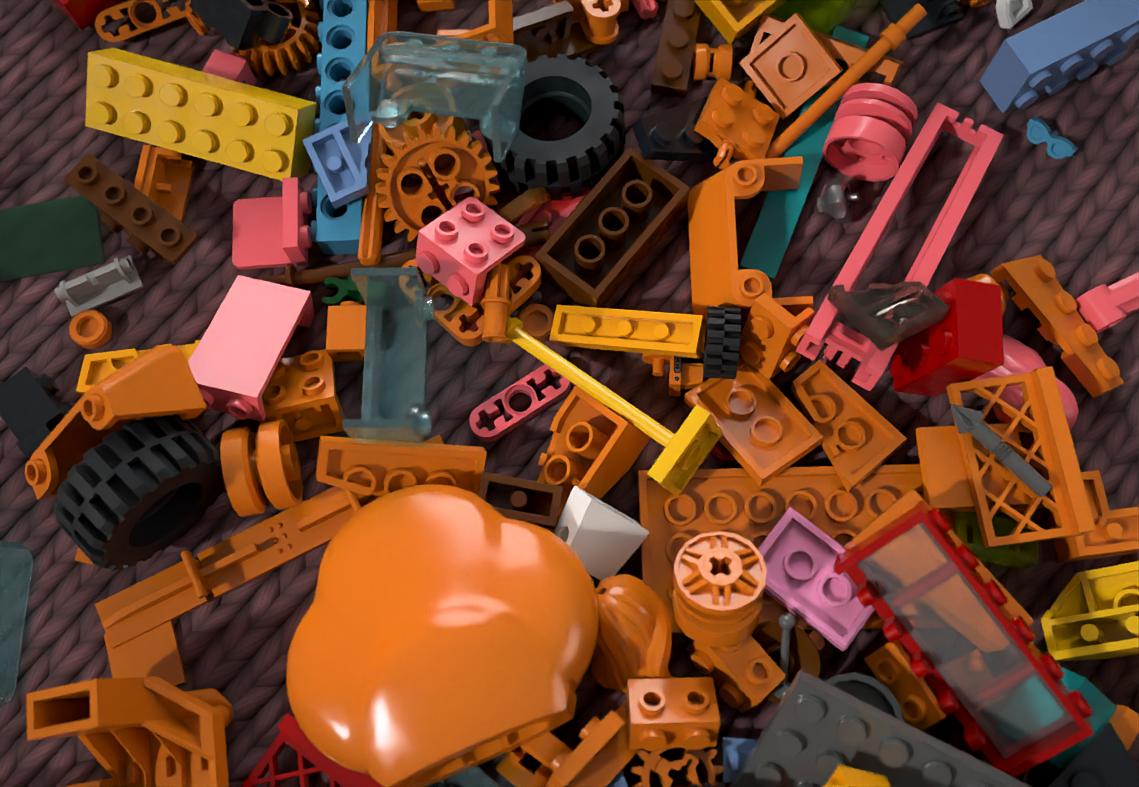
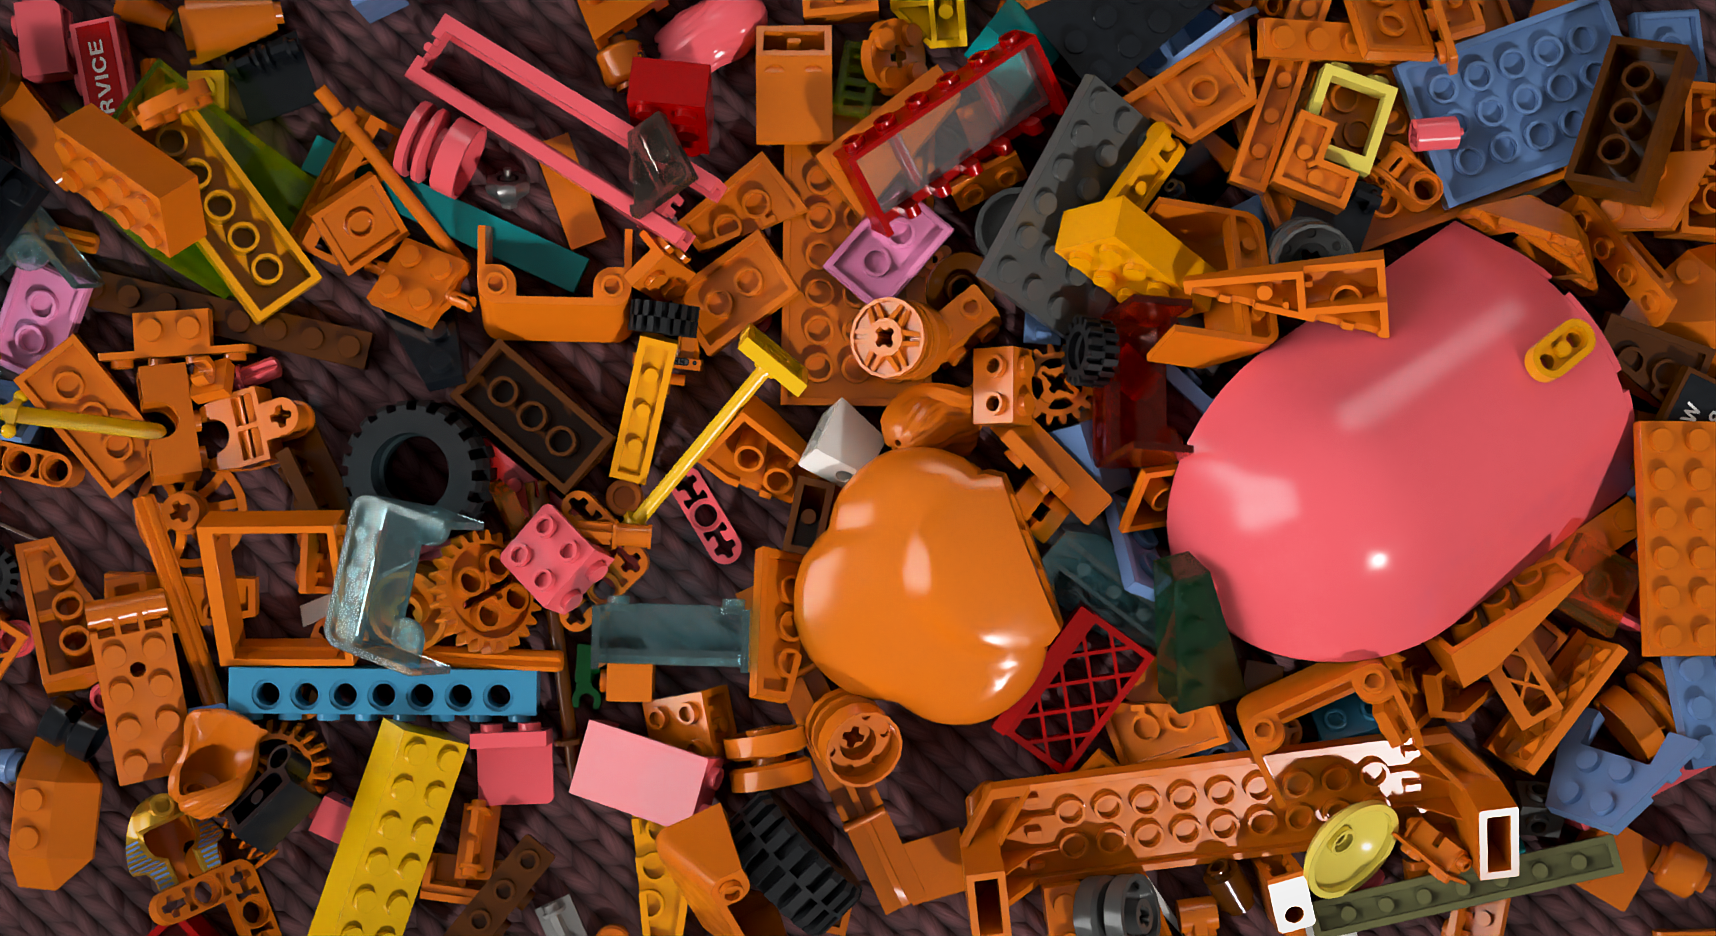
camera: 90 degrees left, 15 degrees up
(196, 198) = (478, 841): none -> orange hinge
(273, 553) = (853, 738): none -> orange wheel
(341, 164) = (458, 693): medium blue wing -> none
(720, 62) = (343, 295): orange wheel -> none
(786, 622) = (929, 279): dark grey hinge -> none
(822, 265) = (573, 204): none -> orange tile
(970, 421) = (758, 98): dark grey piece -> none
(1051, 573) = (885, 39): none -> orange plate
(1055, 453) = (784, 23): orange fence -> none

